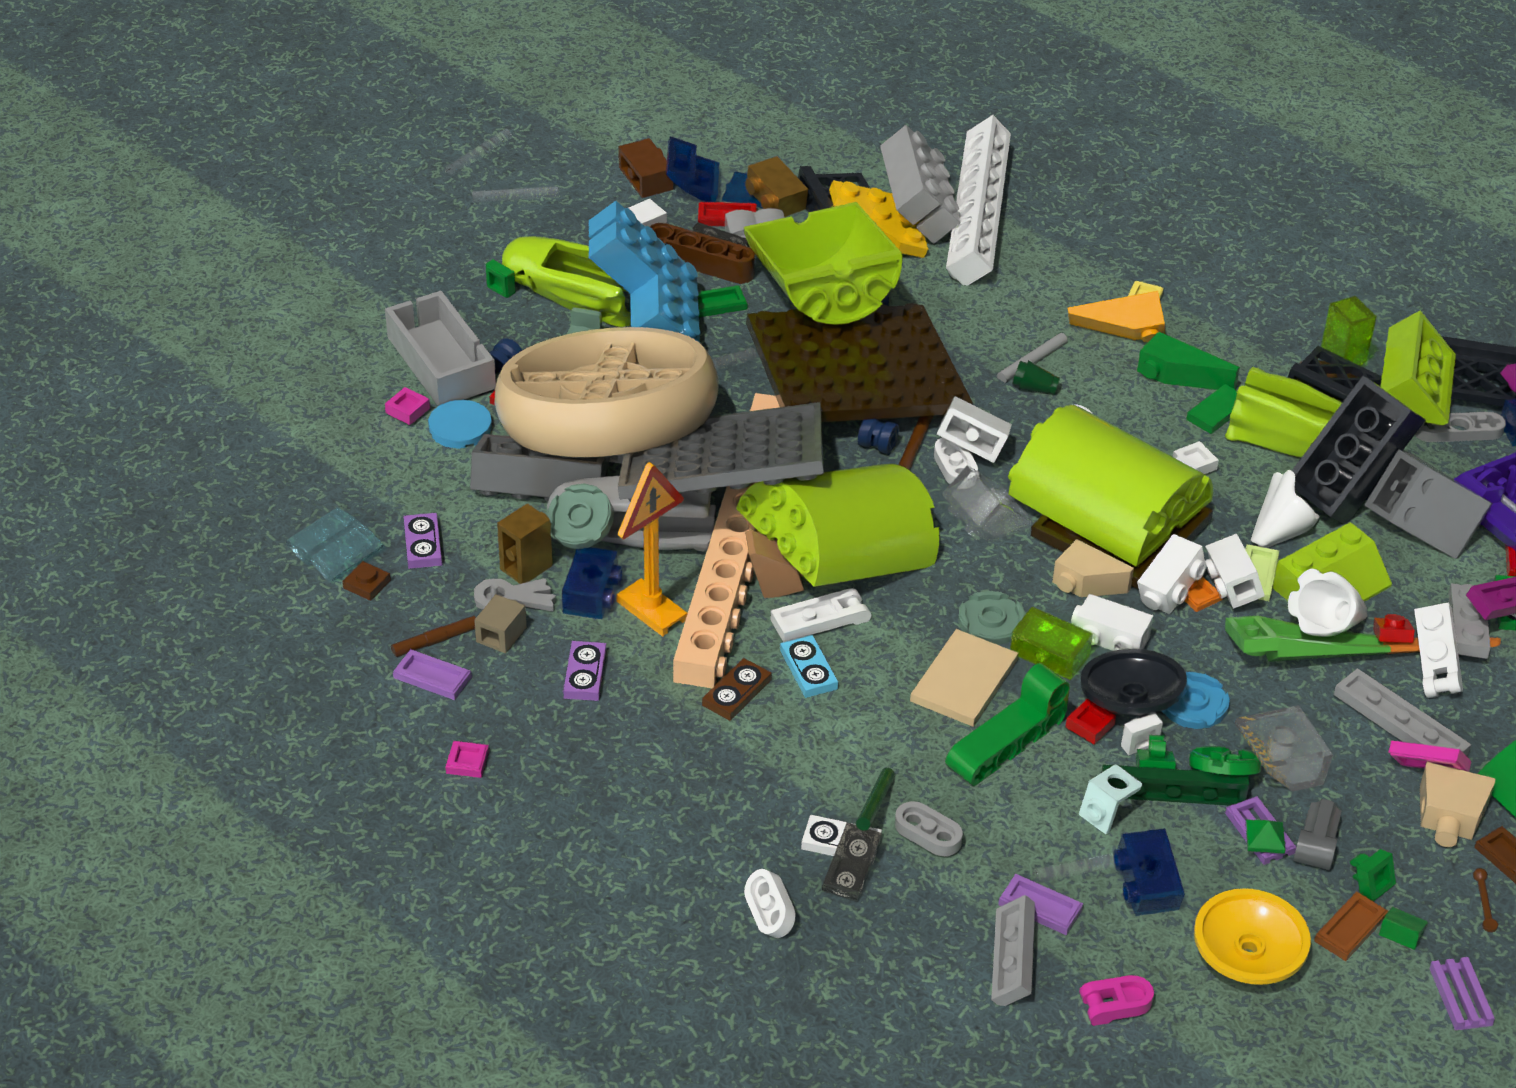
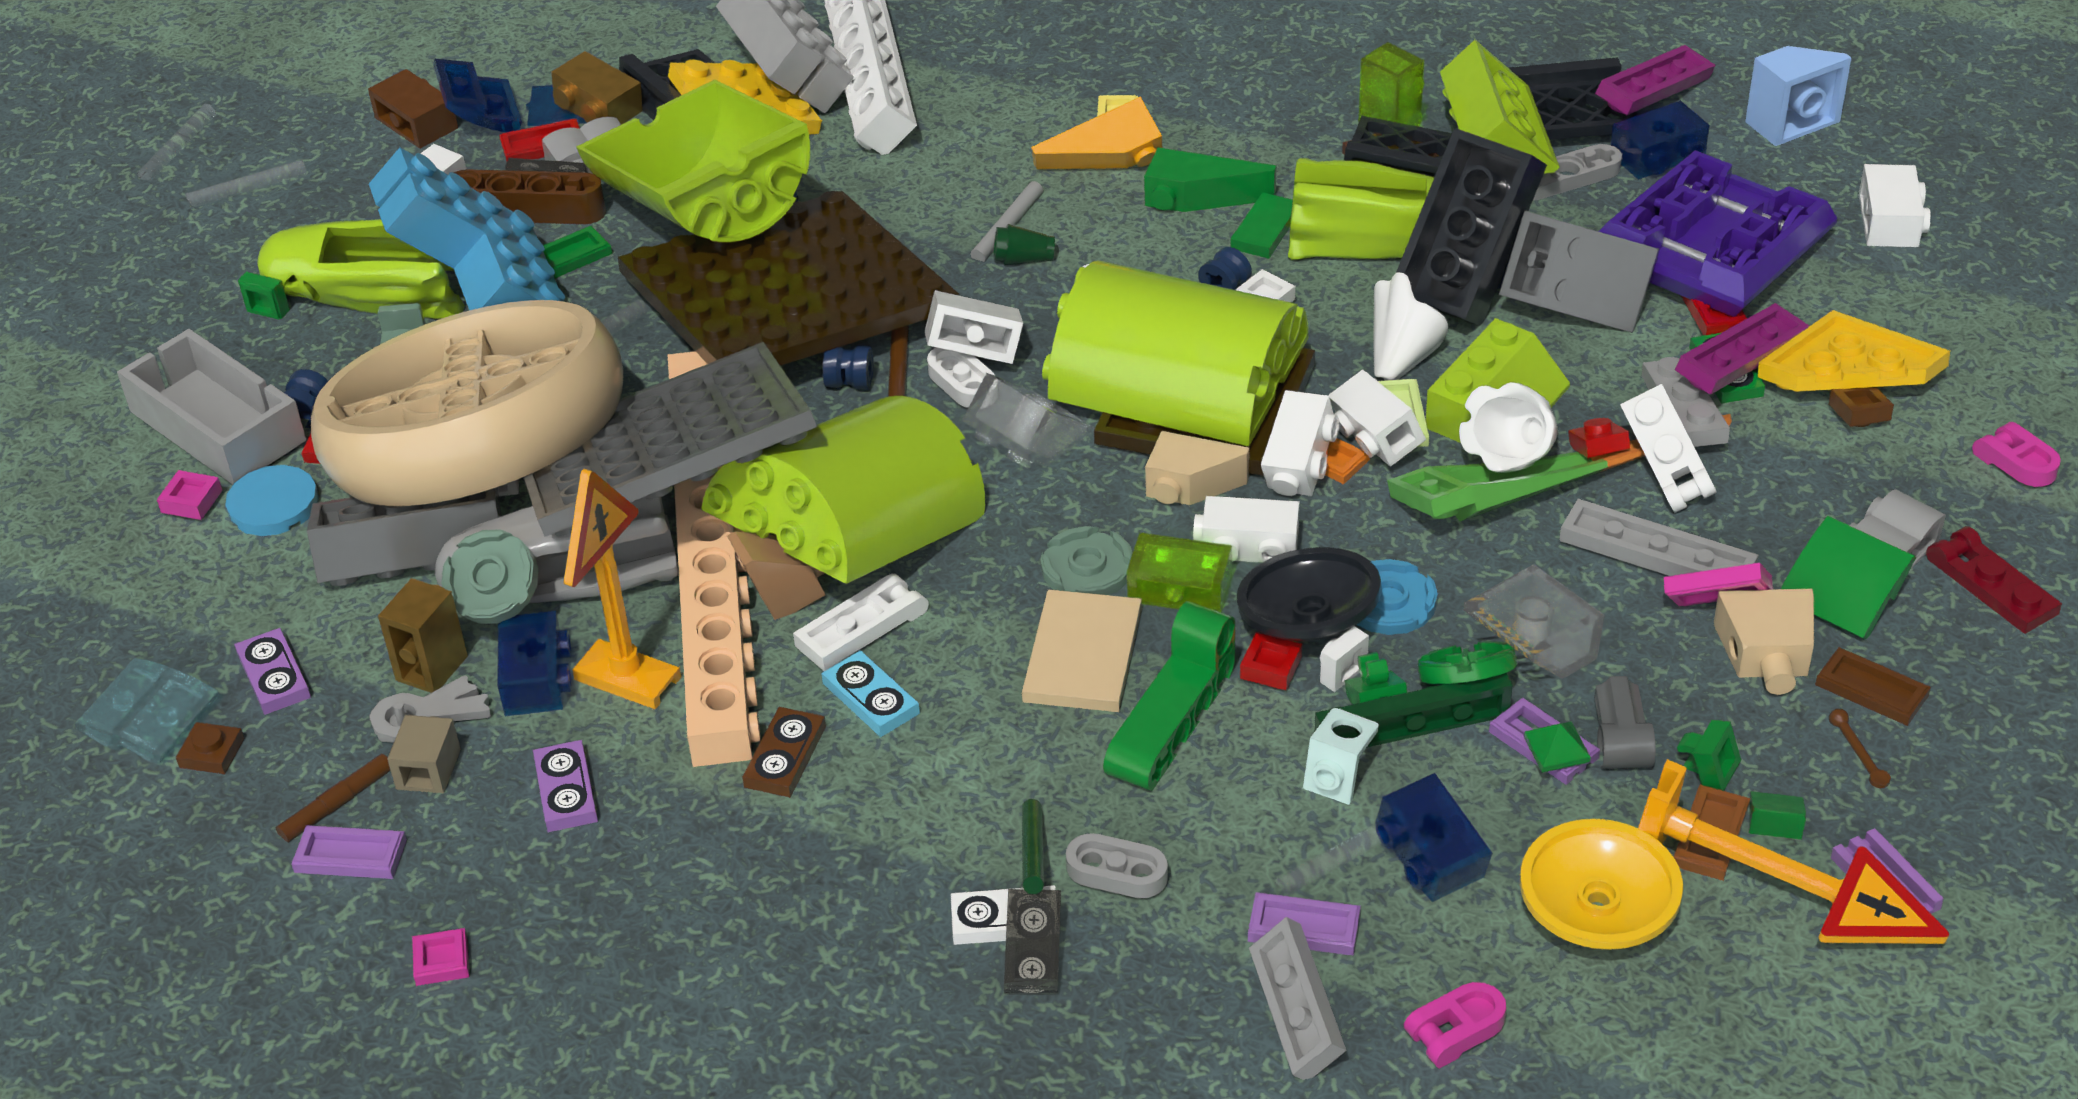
camera: 15 degrees left, 0 degrees up
(769, 903) = (946, 1037): white plate -> none
(1172, 437) = (1226, 270): none -> dark blue wheel
(1434, 1006) = (1865, 904): none -> light orange piece

